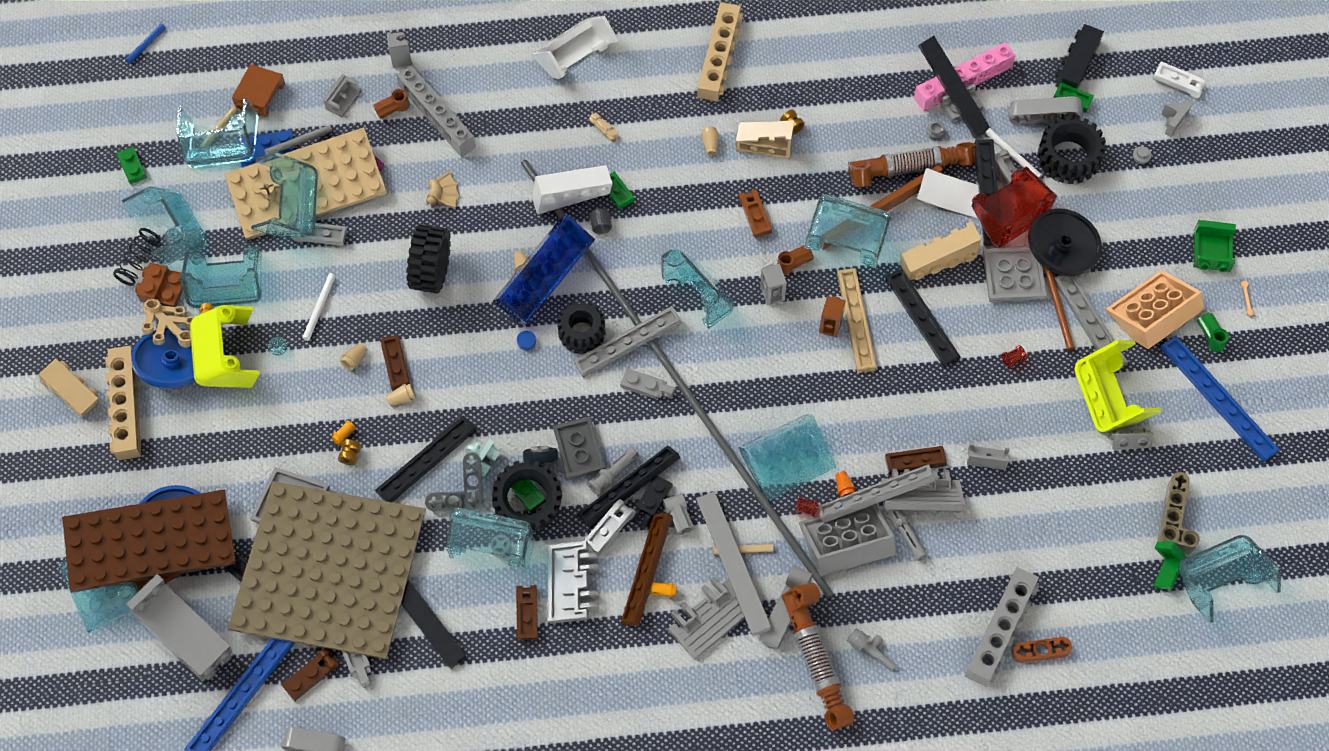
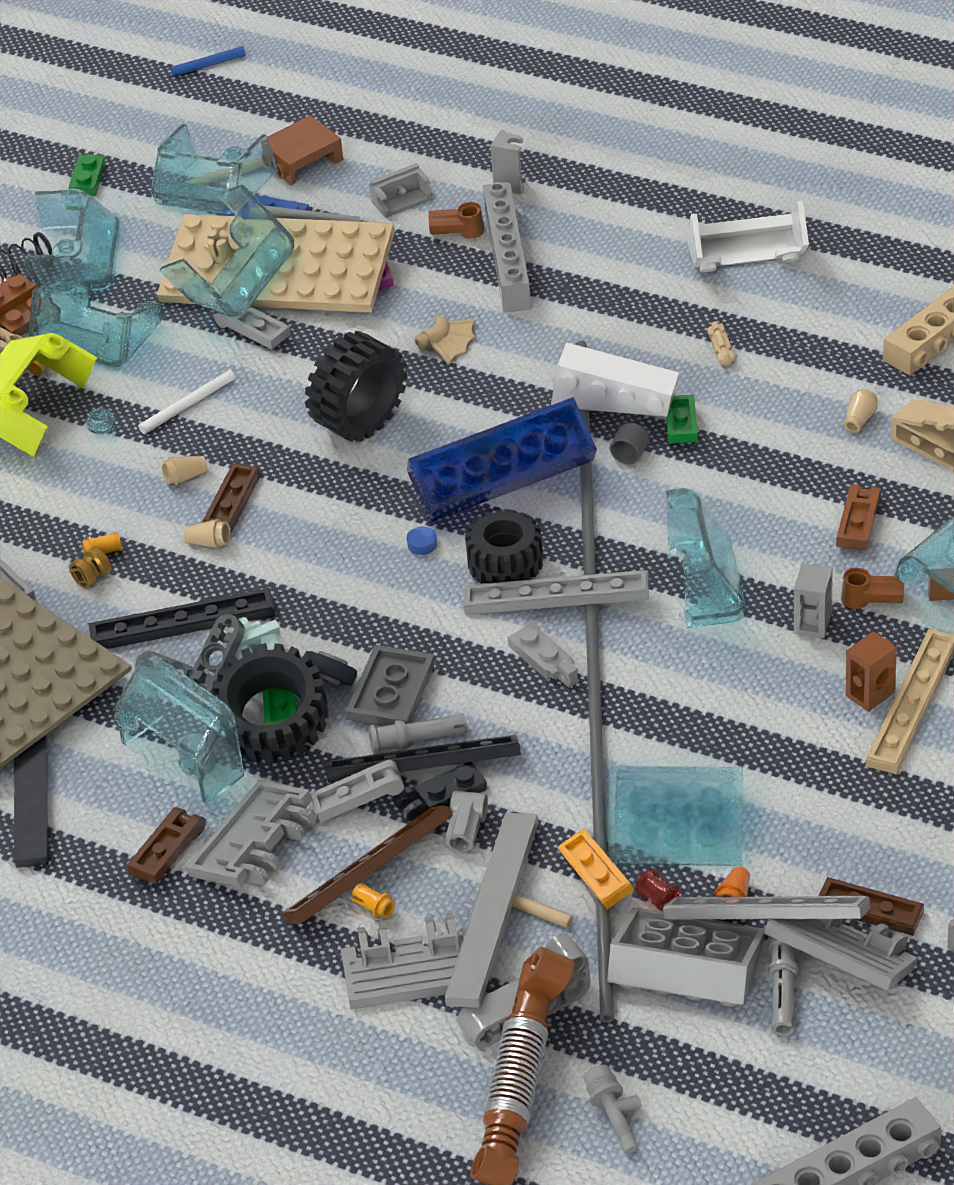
camera: 35 degrees right, 20 degrees down
(767, 510) = (595, 868): none -> light orange tile

